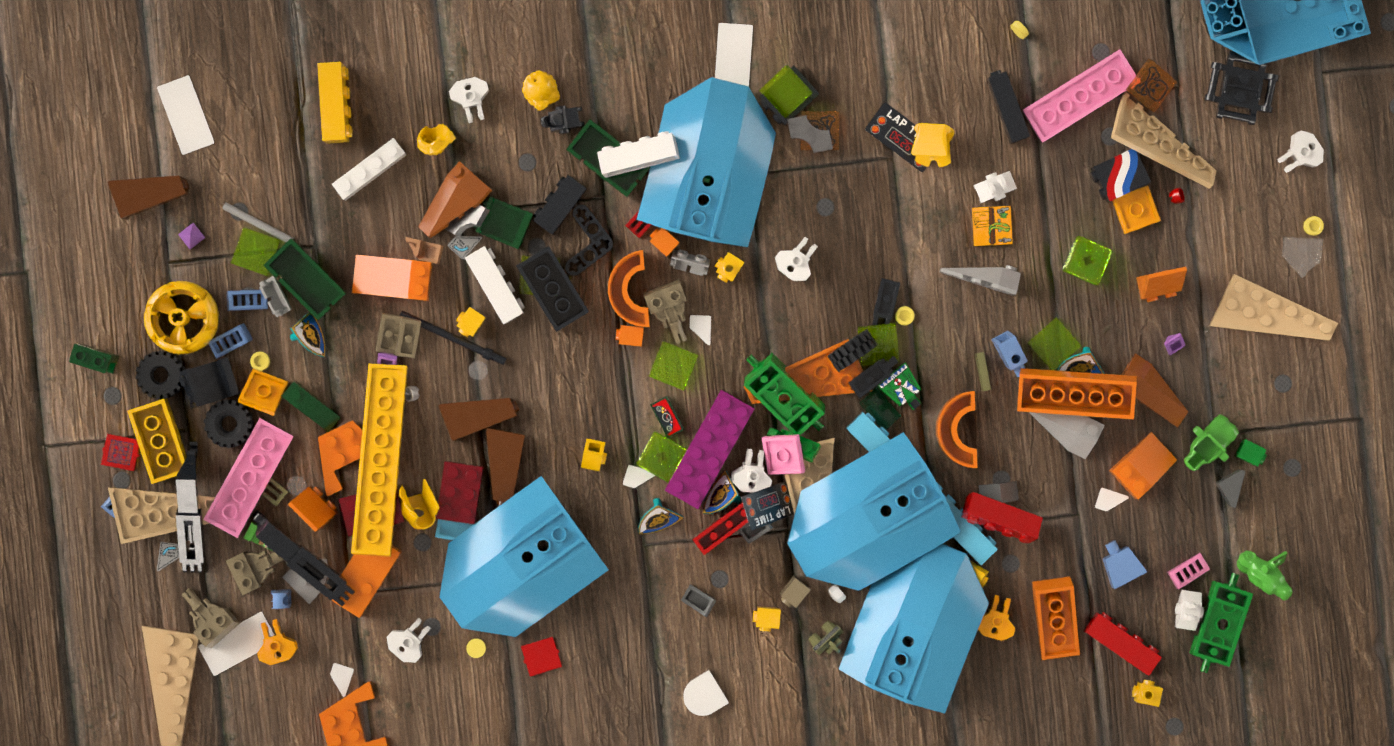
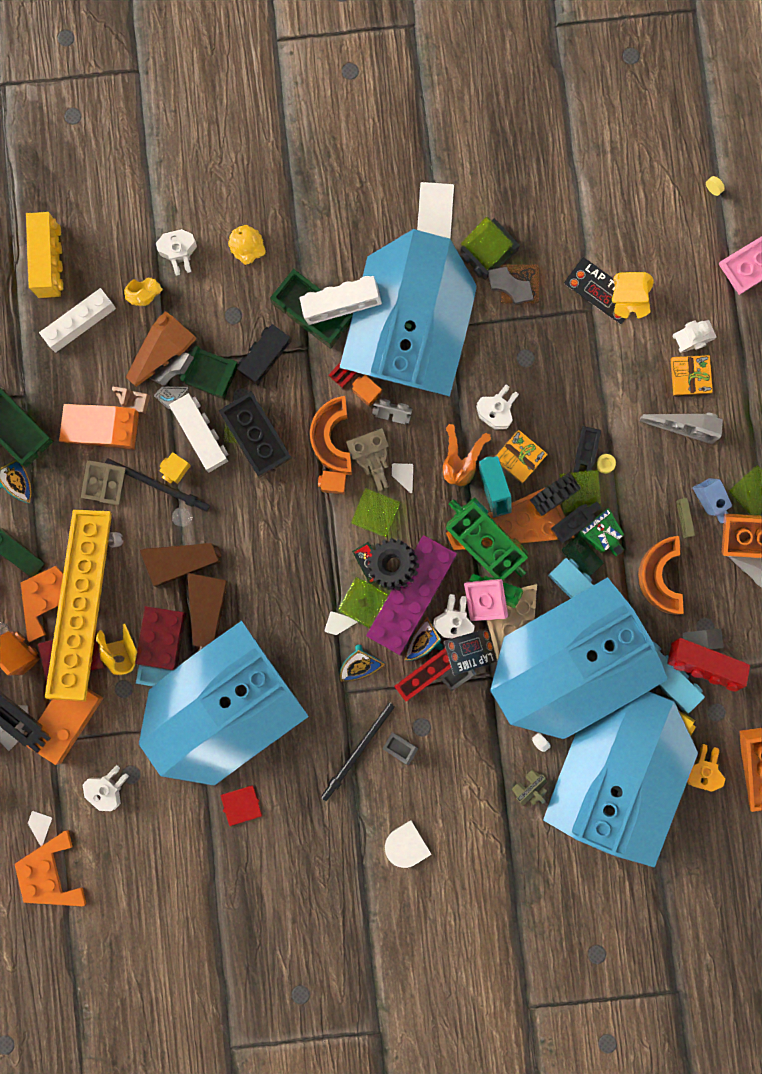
camera: 10 degrees right, 5 degrees down
(387, 358) = (91, 505): medium lavender slope -> none
(476, 648) = (175, 796): light yellow tile -> none
(562, 119) = (267, 271): black hinge -> none
(593, 455) = (293, 604): yellow brick -> none
(595, 238) = (299, 389): black beam -> none
(634, 633) = (335, 782): none -> black bar
(677, 417) = (383, 554): none -> black tyre
(728, 267) = (430, 415): yellow brick -> none
(757, 324) = (461, 471): none -> orange hair
(767, 618) = (470, 767): yellow brick -> none
(793, 341) = (495, 486): none -> teal brick
(794, 592) = (497, 740): dark tan brick -> none
(819, 308) = (520, 456): none -> light orange tile
(1007, 106) = (705, 259): black brick -> none

